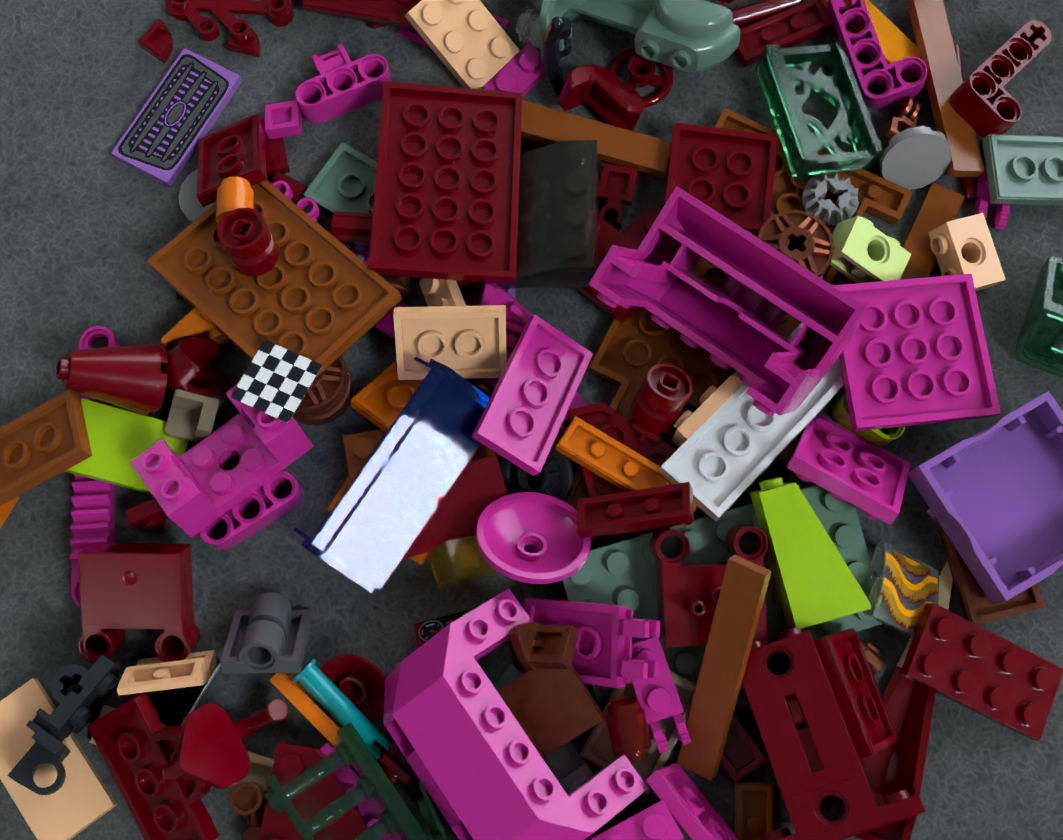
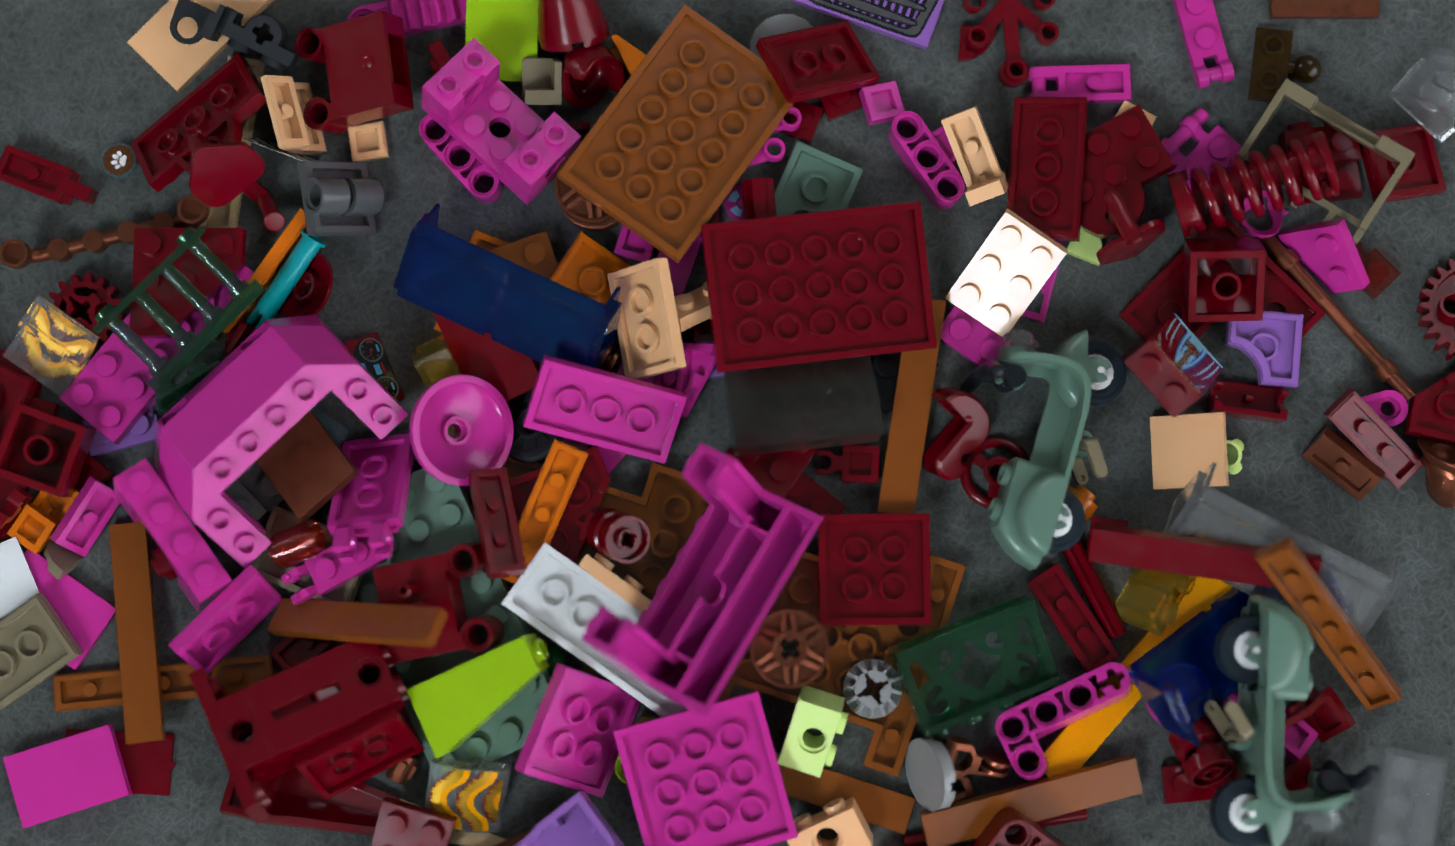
camera: 85 degrees right, 10 degrees up
(214, 605) = (368, 141): none -> light nougat tile
(233, 194) = (750, 79): orange brick -> none
(248, 241) = (706, 102): dark red wheel -> none
(276, 381) = (567, 159): sticker -> none
(352, 35) = (975, 156): none -> light nougat bracket
(371, 354) = (633, 247): none -> dark pink plate
(544, 645) = (357, 454): copper tile -> none

